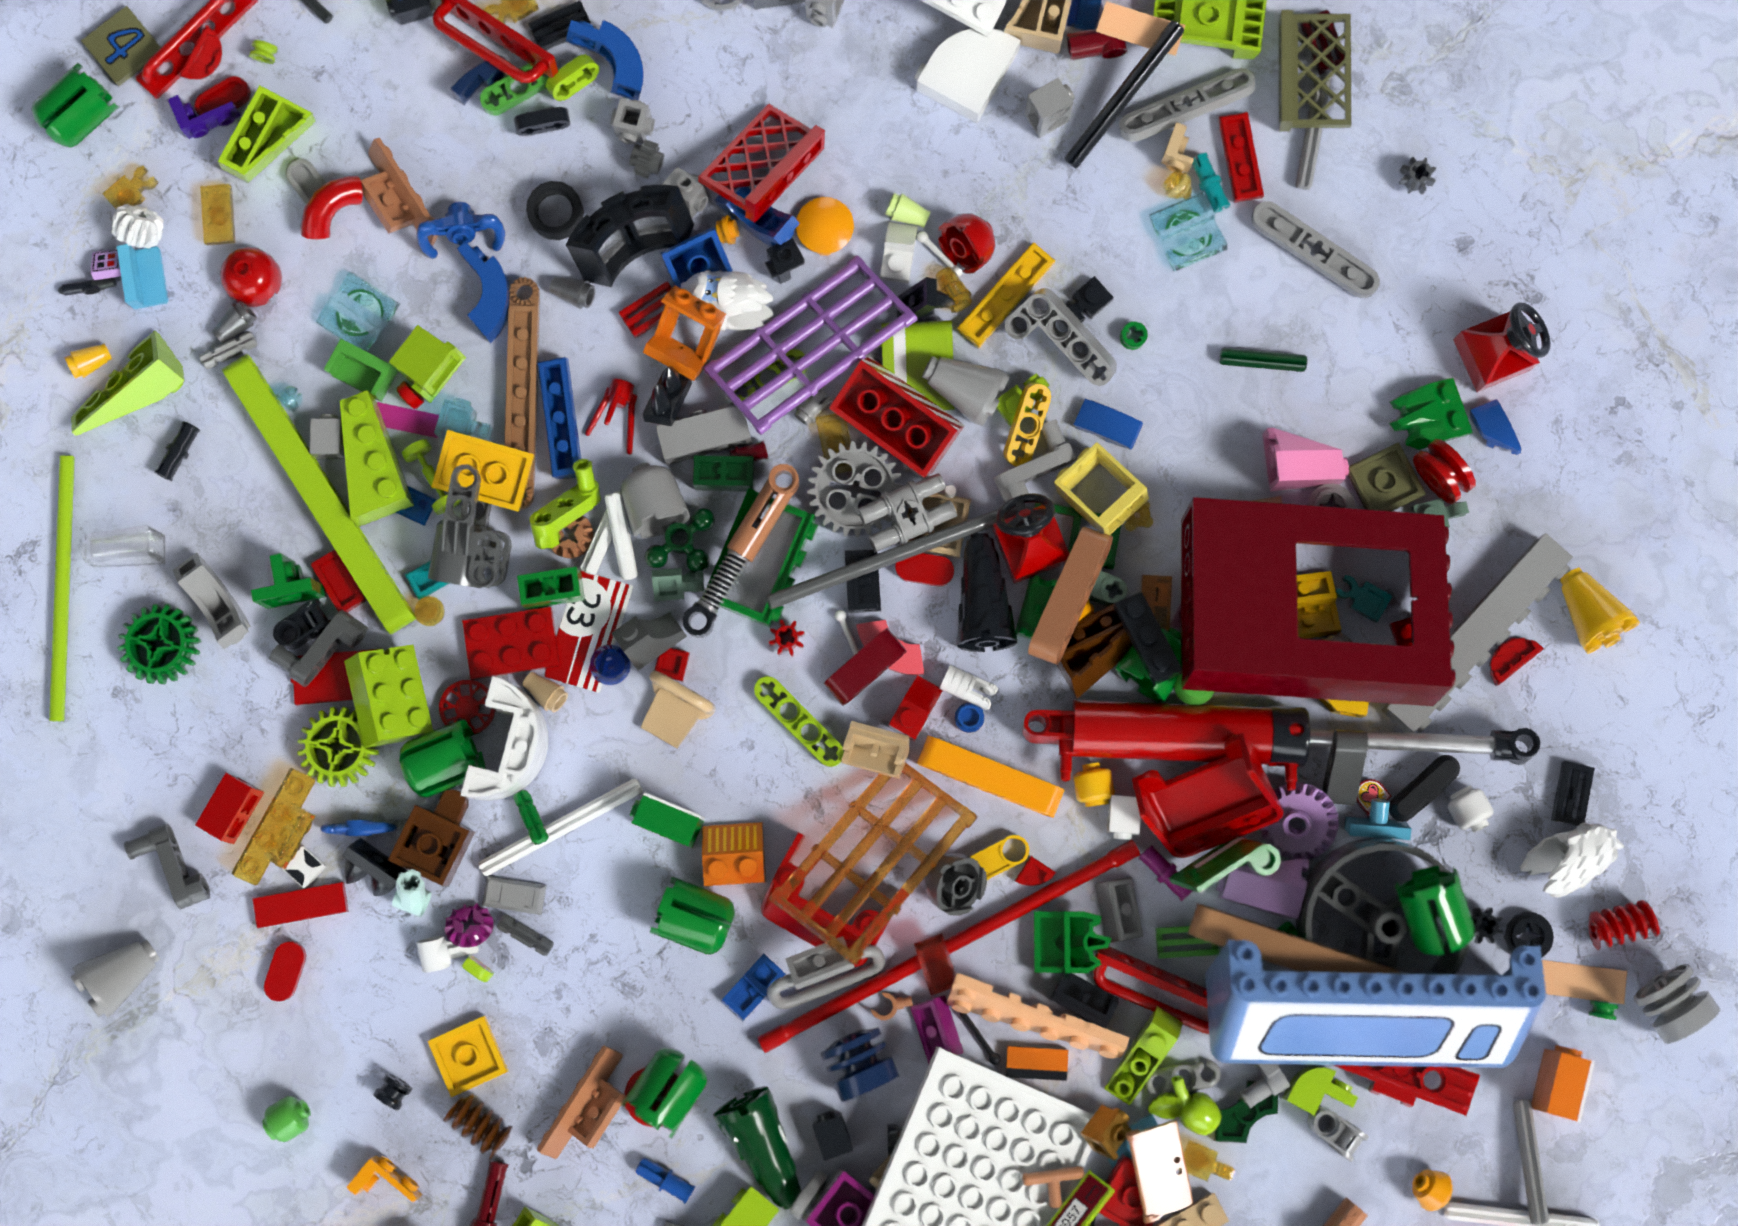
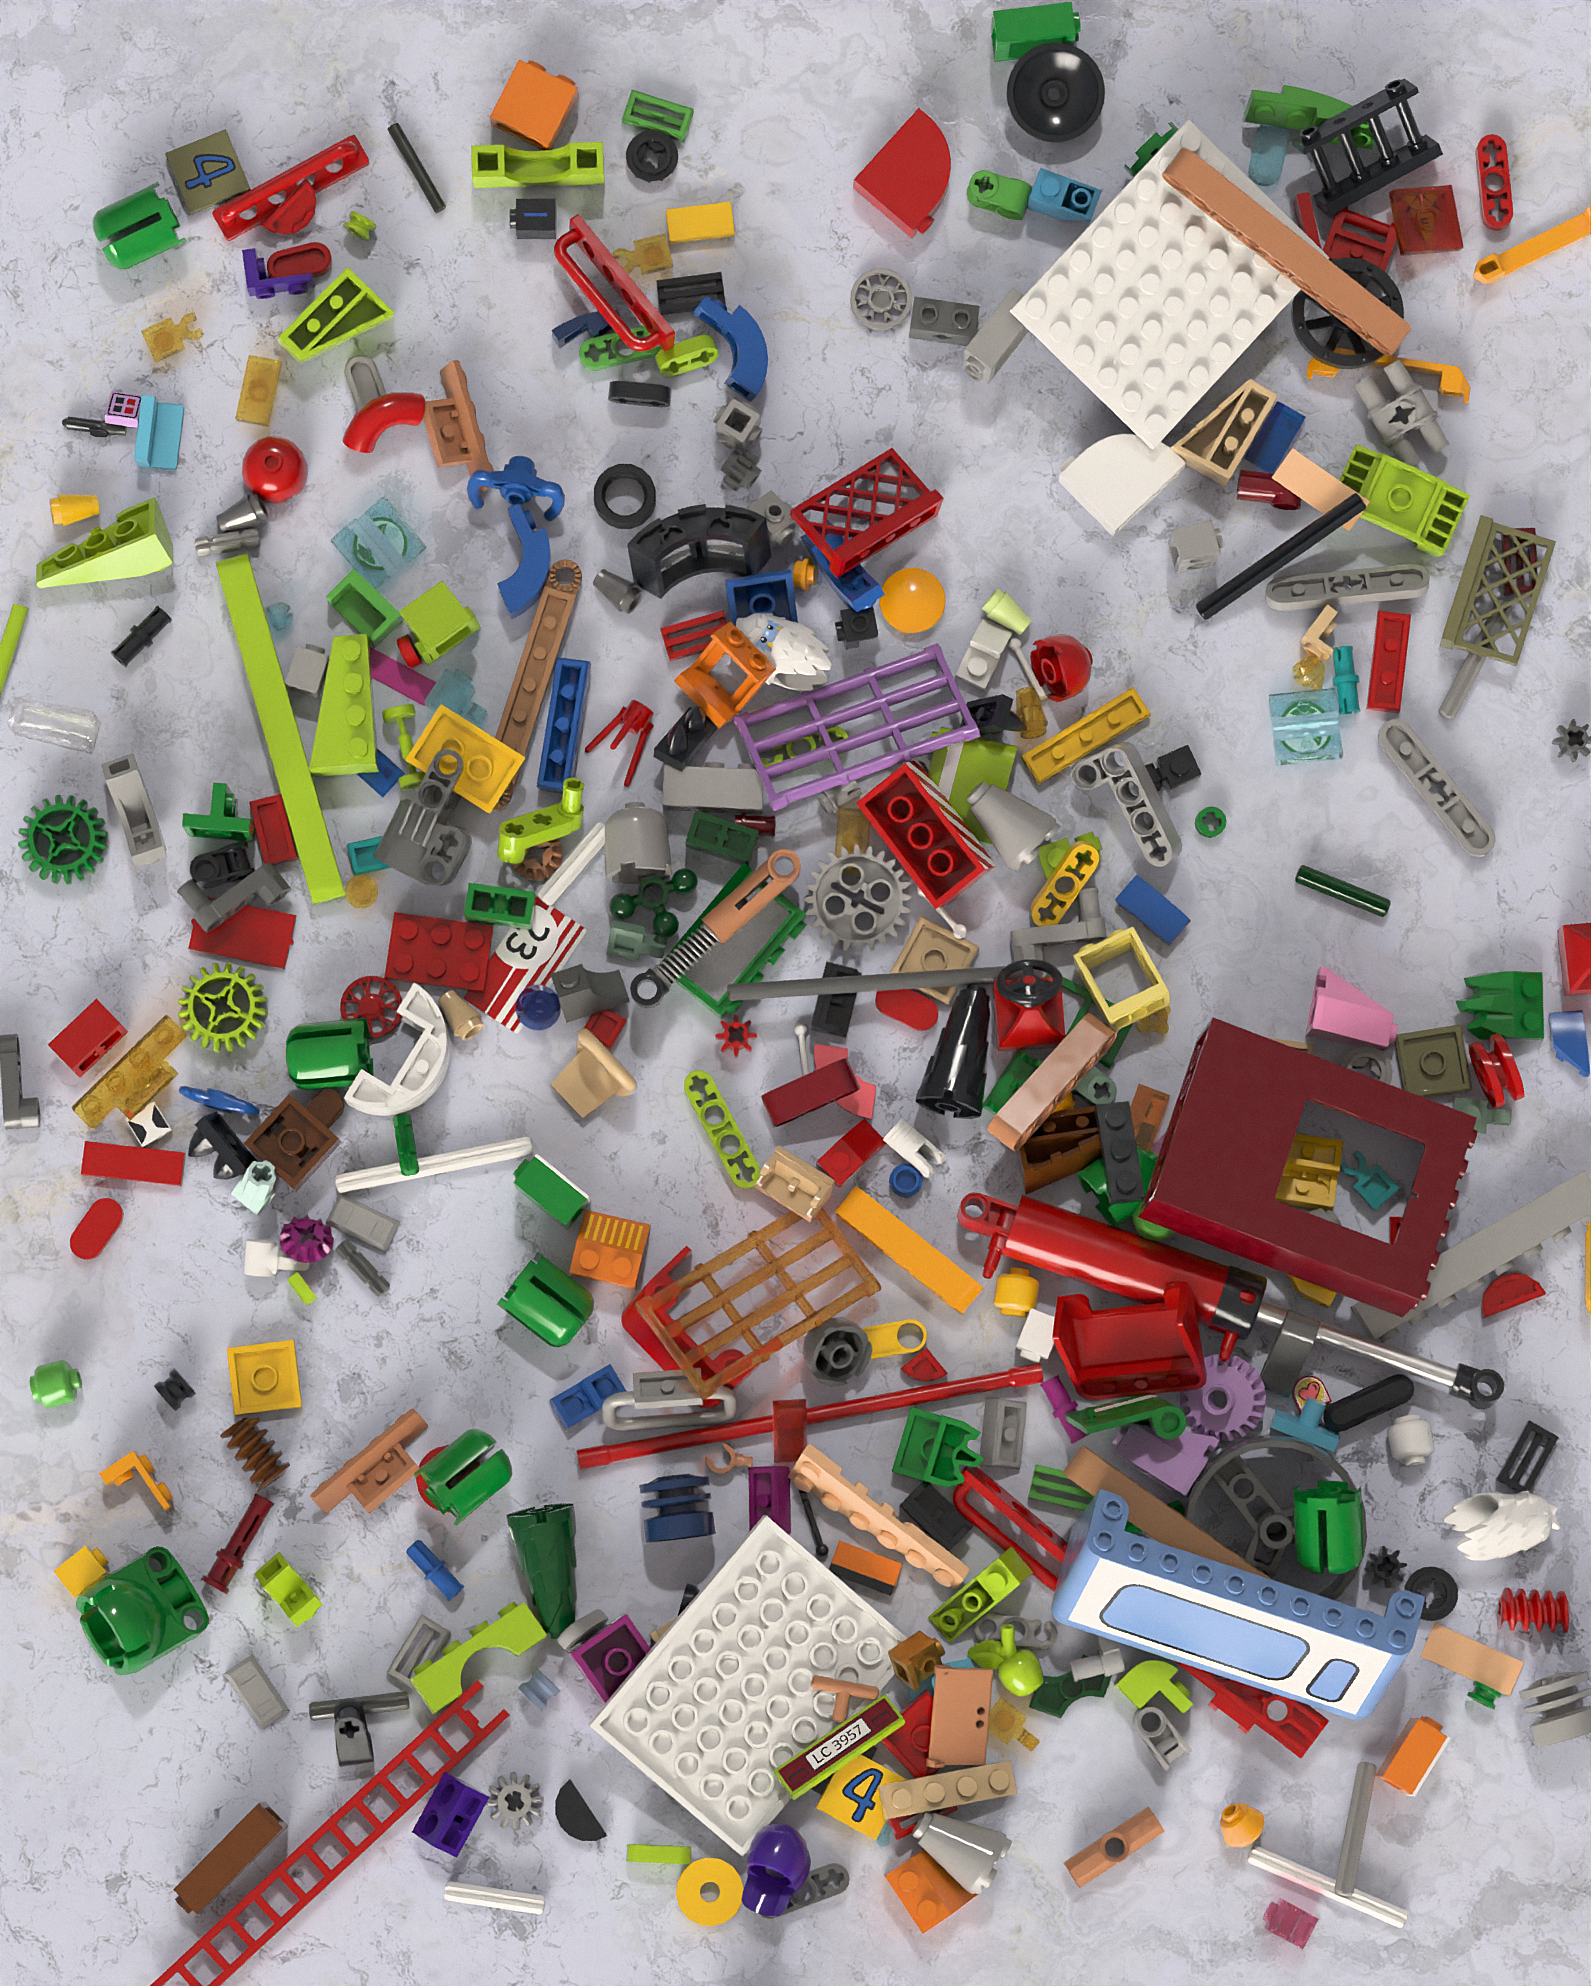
camera: 10 degrees right, 0 degrees up
(137, 226) = (169, 379): white gear -> none
(388, 695) = (293, 969): lime piece -> none
(621, 536) = (591, 873): white axle -> none
(832, 1135) = (625, 1576): black brick -> none
(920, 519) = (892, 928): light grey pin -> none

